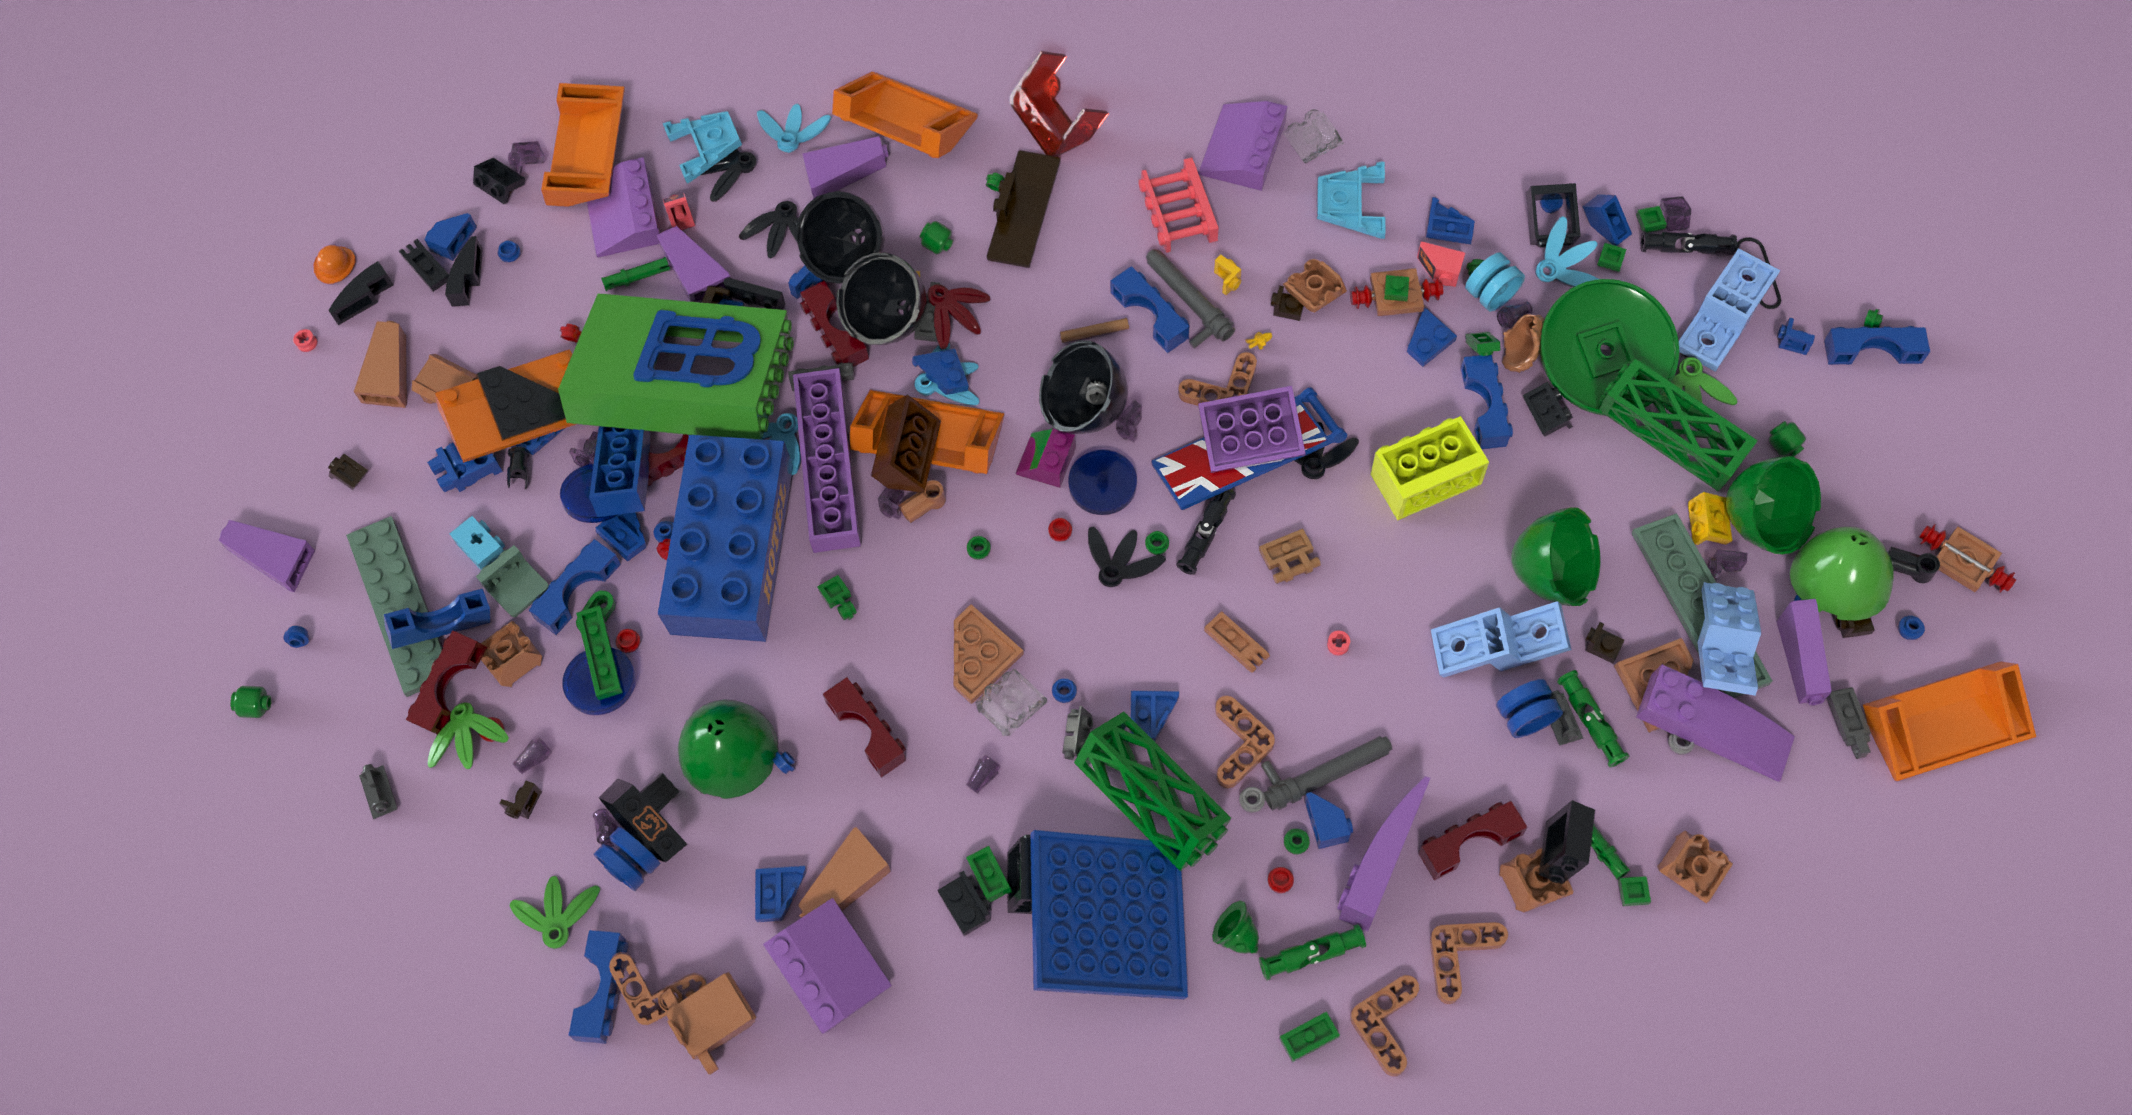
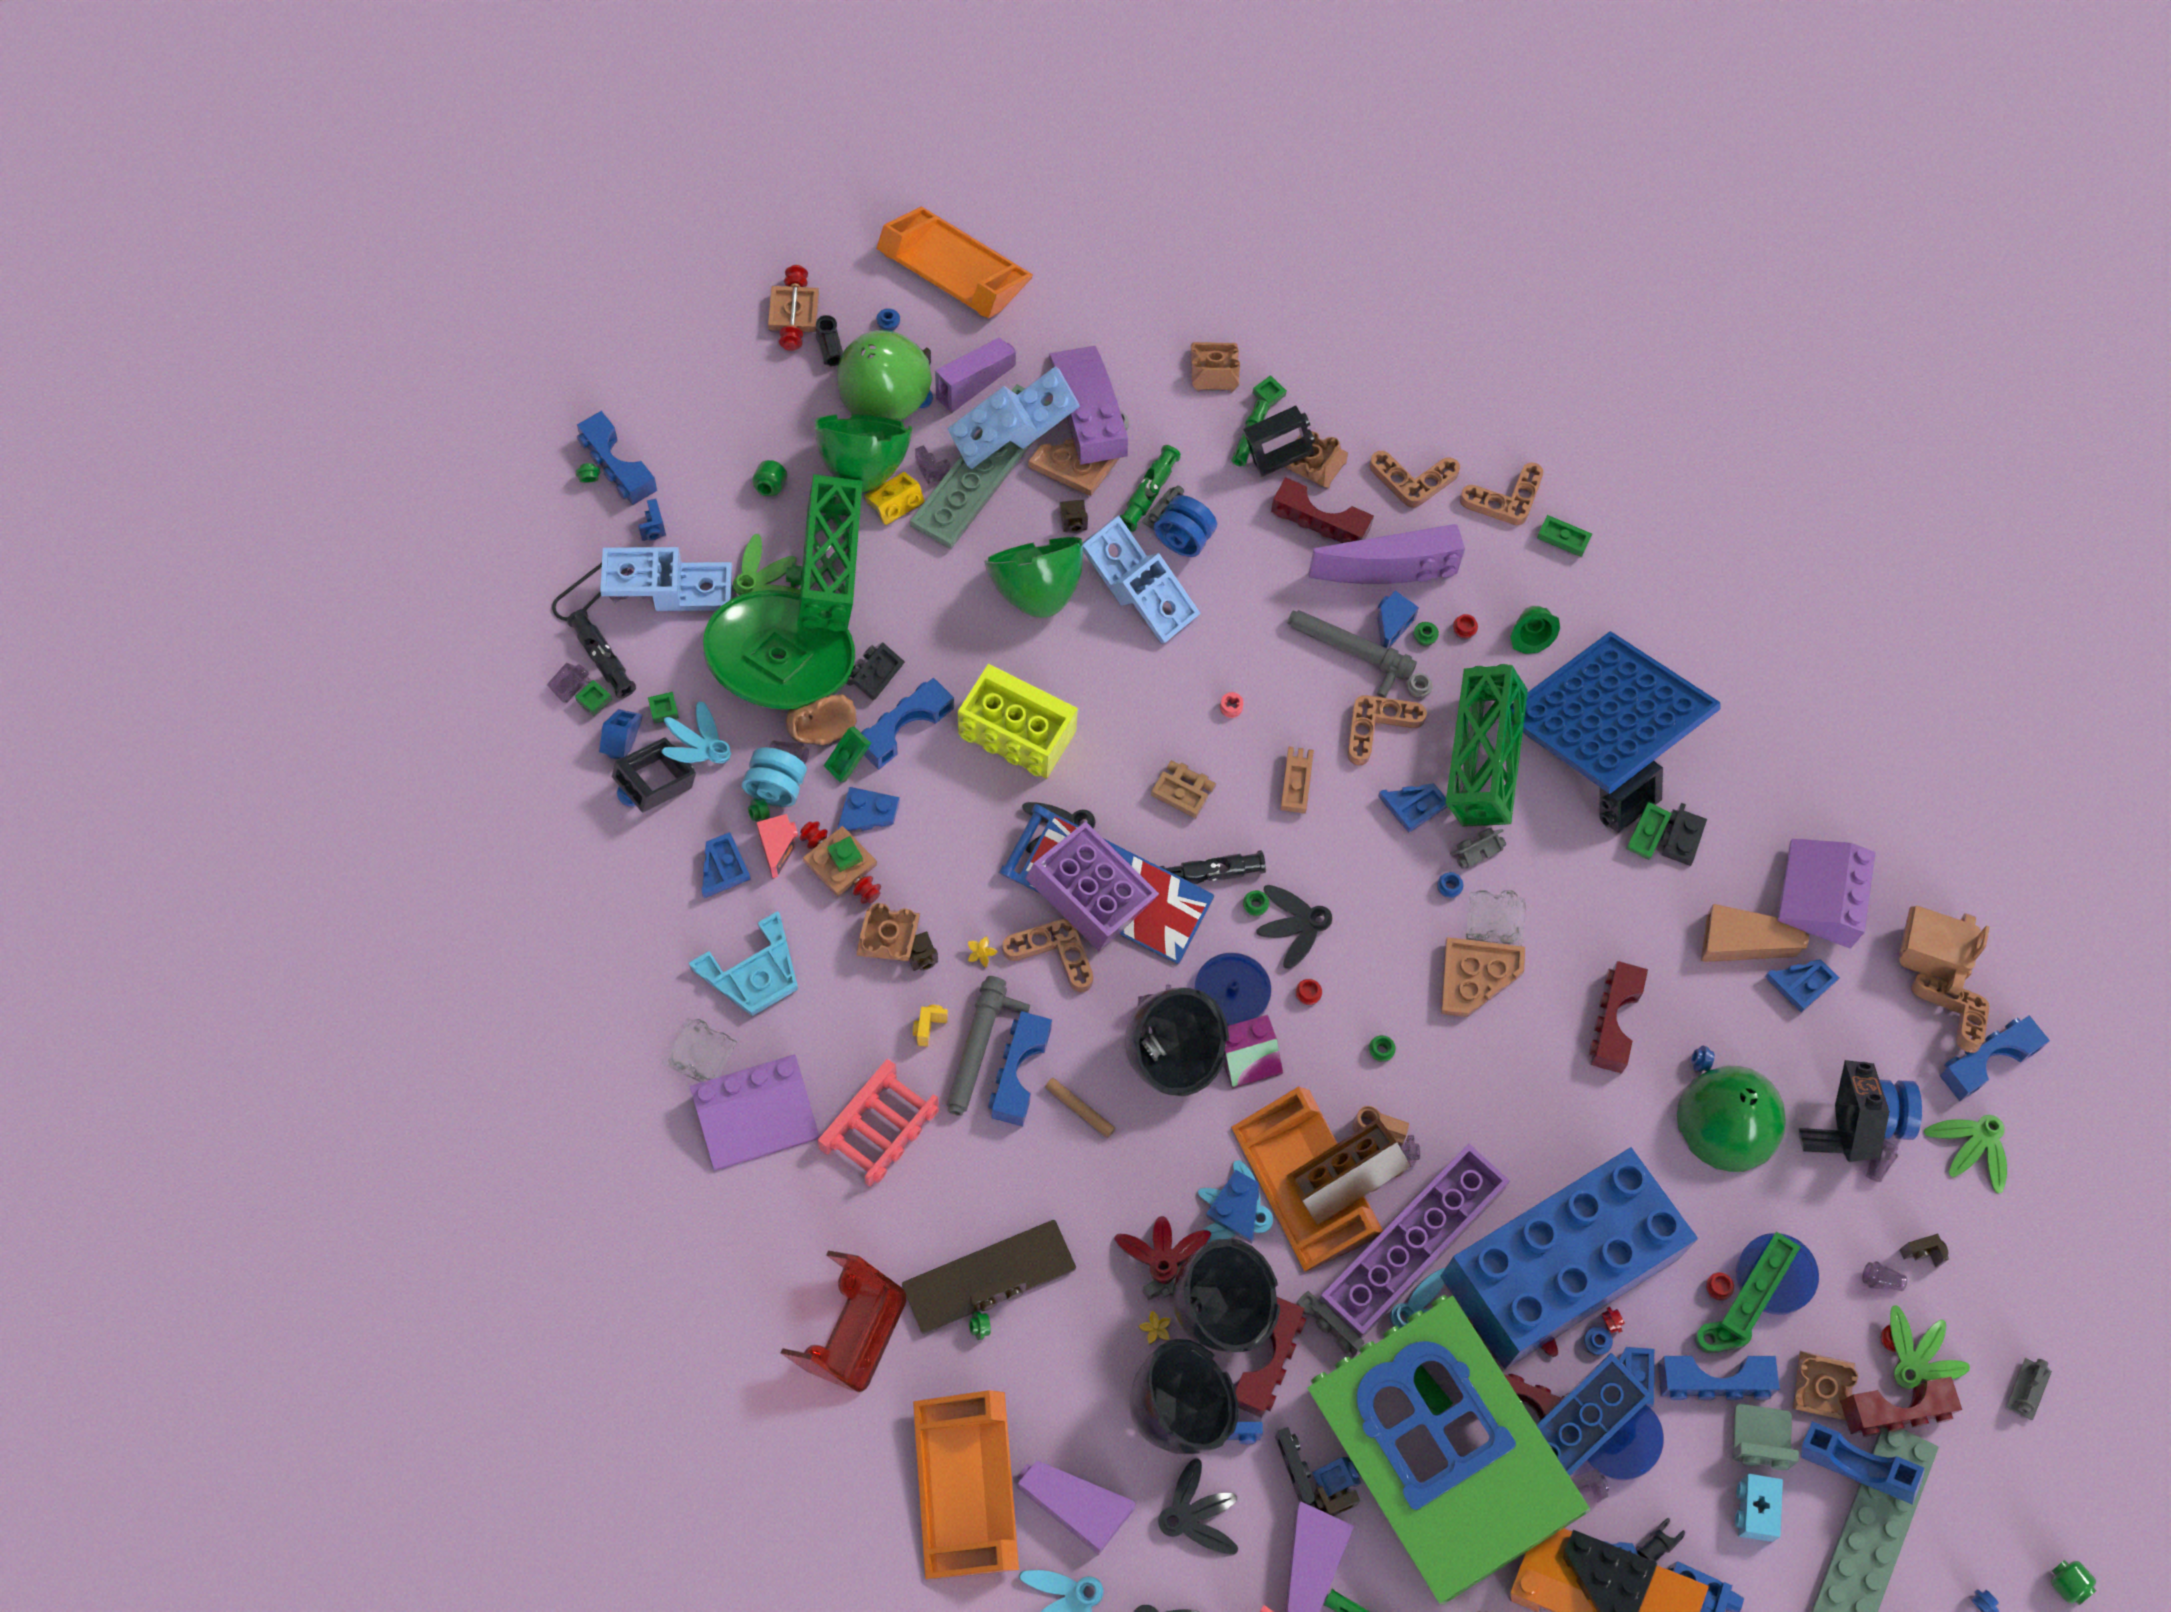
camera: 135 degrees left, 0 degrees up
(835, 593) = (1525, 1135): green plate -> none
(936, 237) = (1092, 1333): green head -> none
(983, 773) = (1573, 895): clear purple cone -> none
(1300, 956) = (1512, 575): green piece -> none
(1850, 721) = (1007, 320): dark grey hinge -> none

